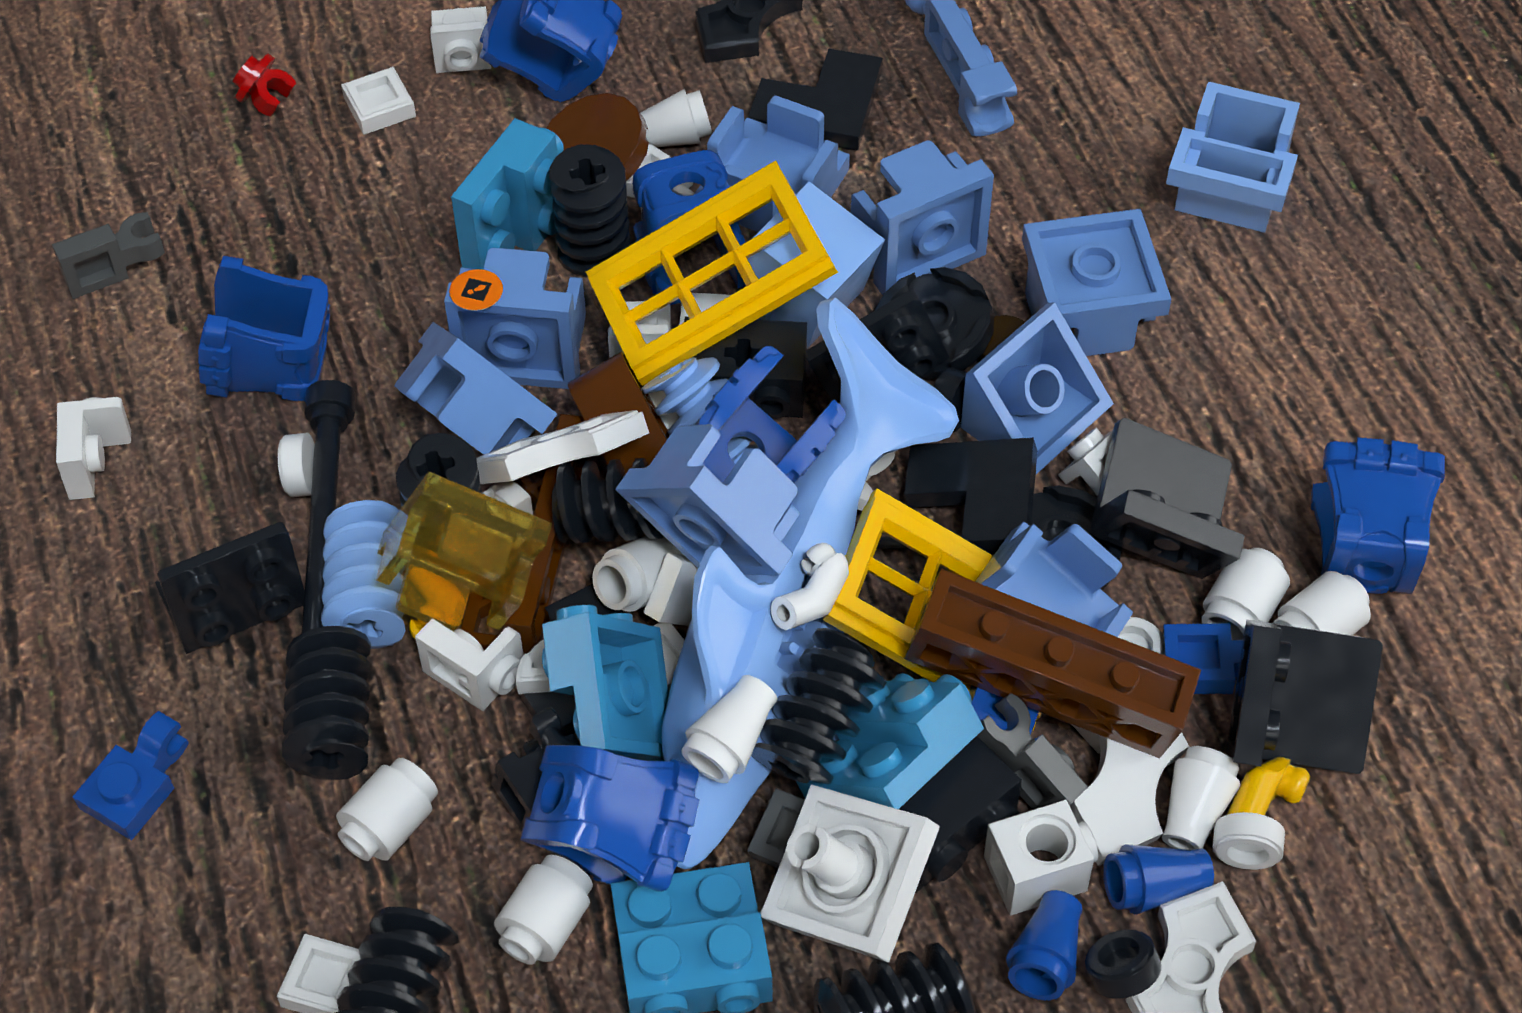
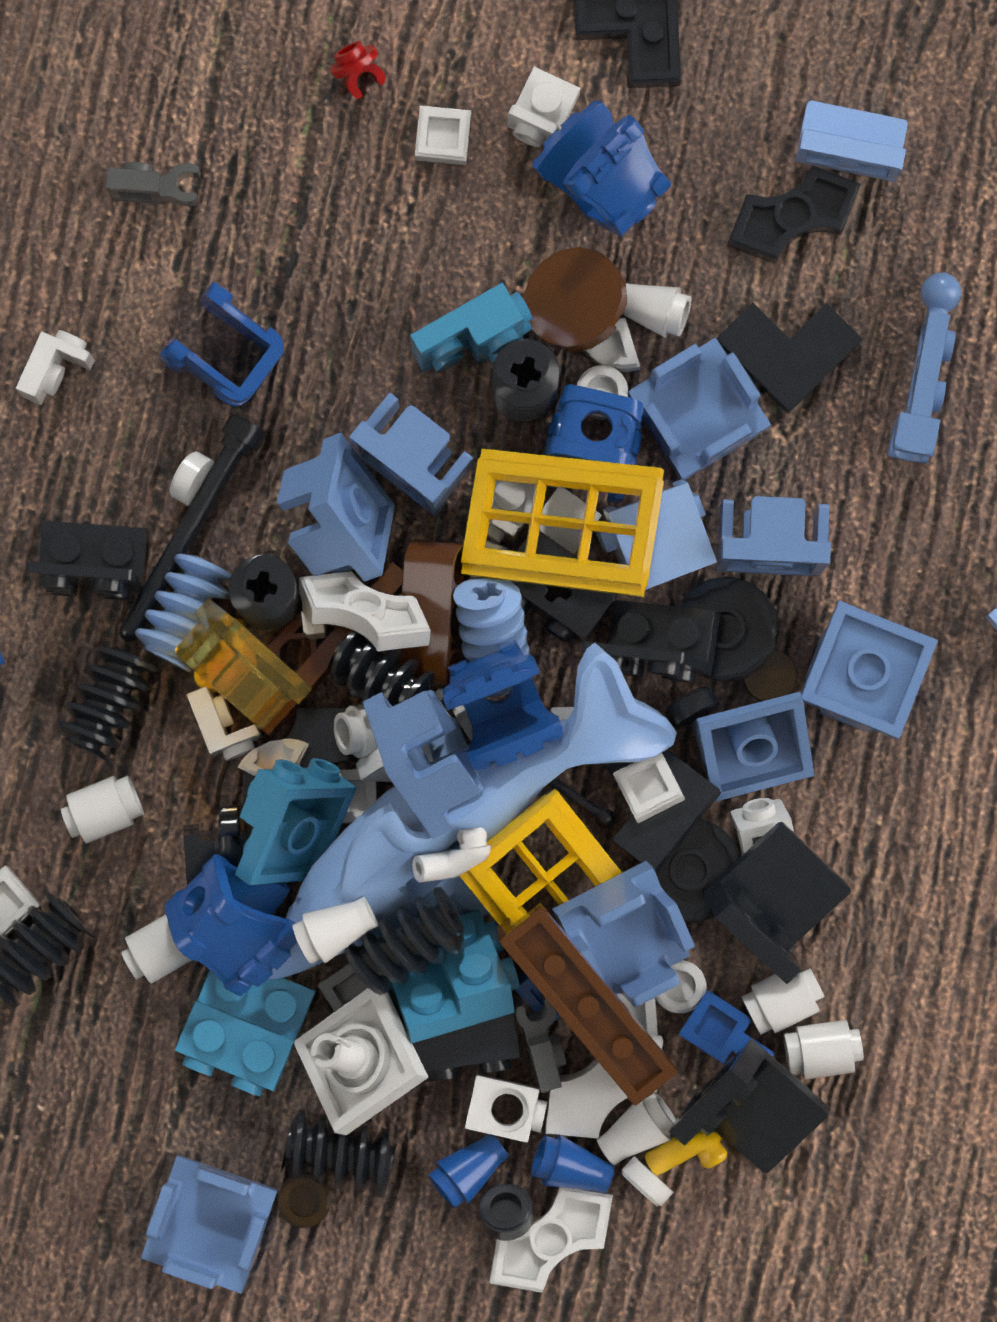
camera: 30 degrees right, 30 degrees up
(476, 289) = (377, 441): orange sticker -> none
(962, 473) = (648, 787): none -> white tile
(1377, 511) = (913, 1005): blue piece -> none

